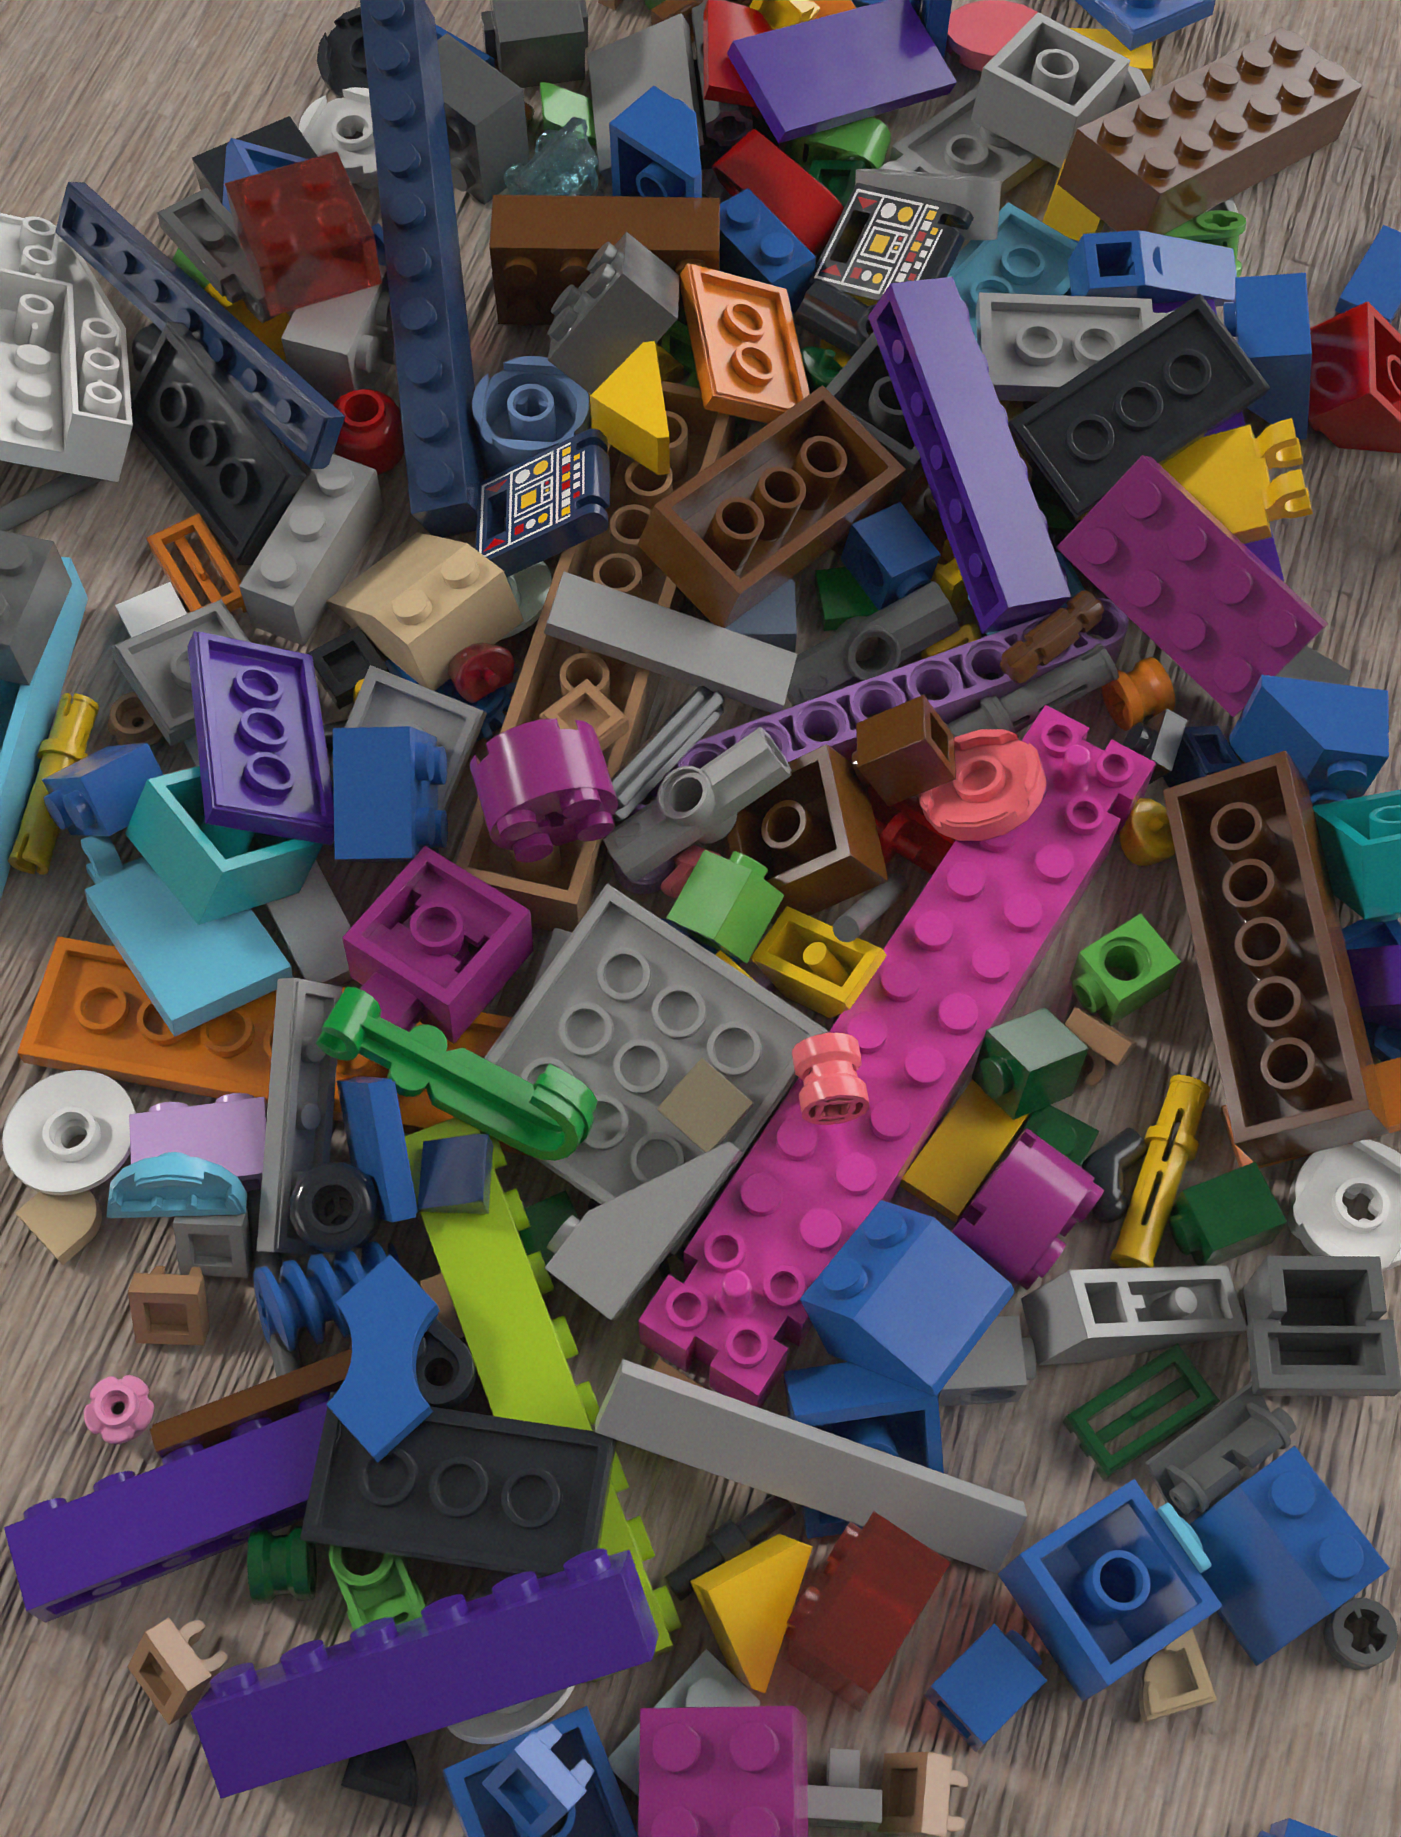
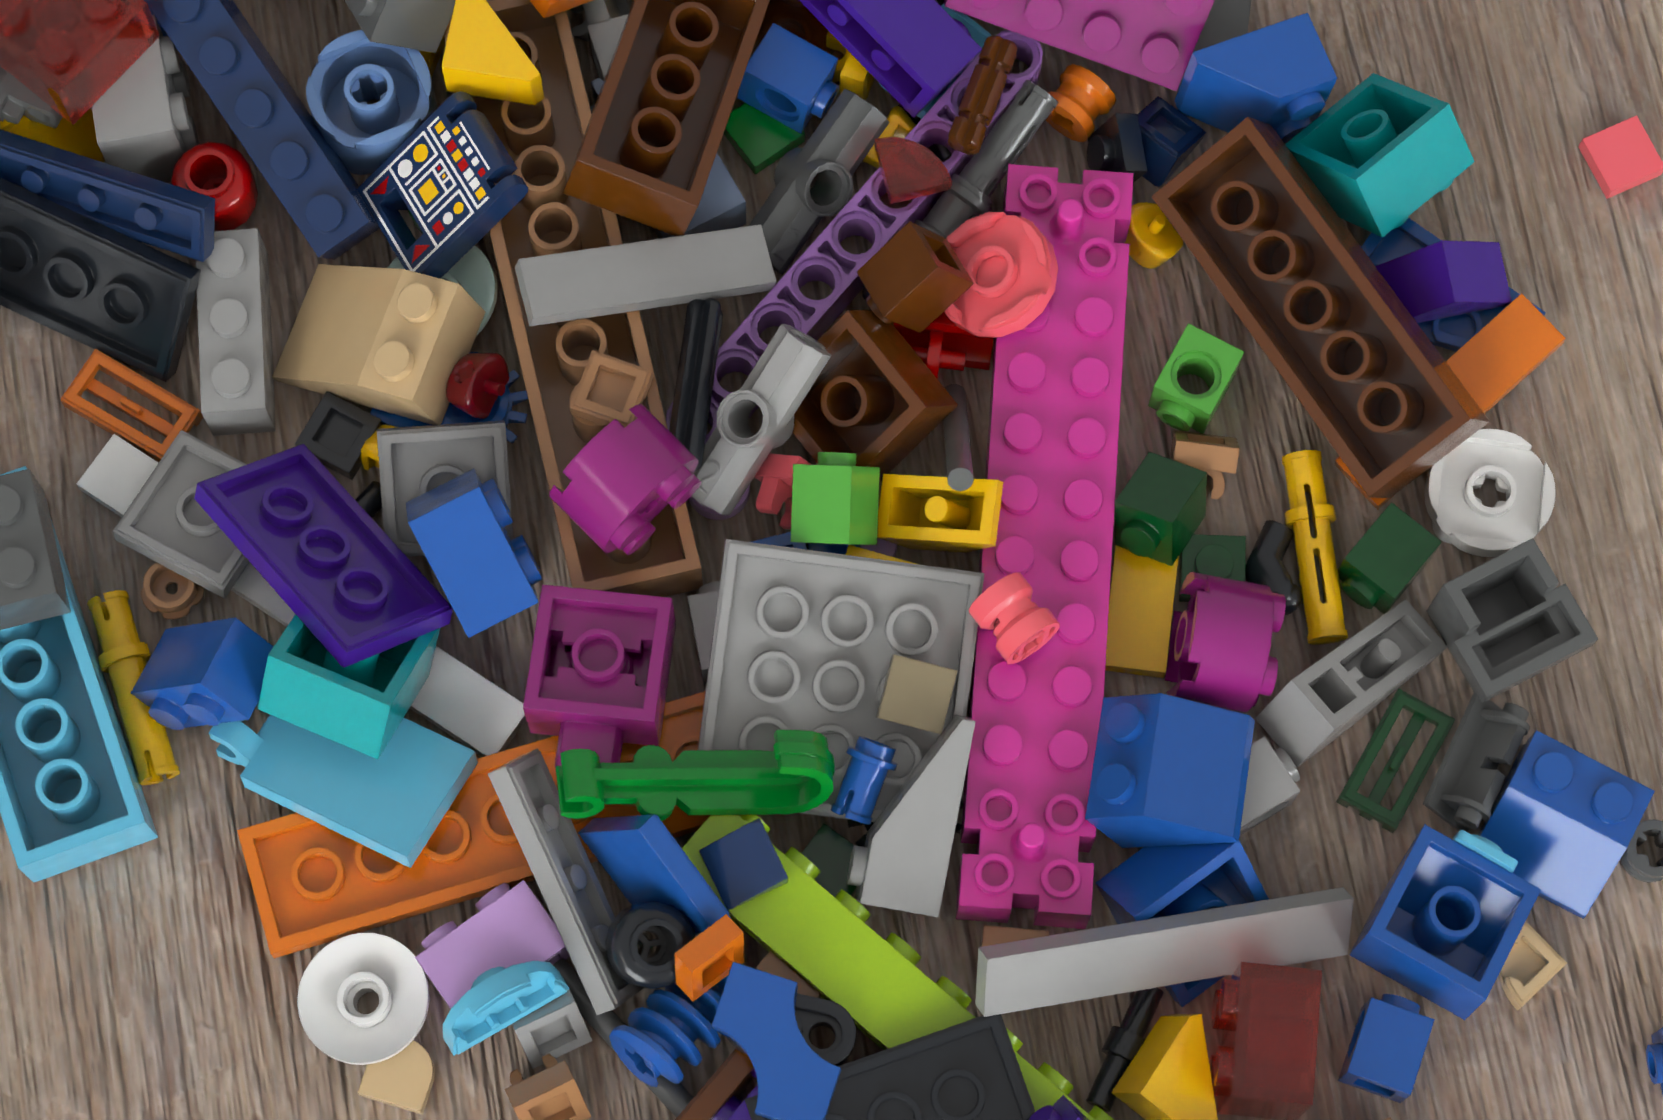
camera: 30 degrees left, 10 degrees up
(370, 1237) = (709, 957): none -> orange tile
(614, 1159) = (864, 779): none -> blue pin
(954, 668) = (910, 169): none -> clear red tile

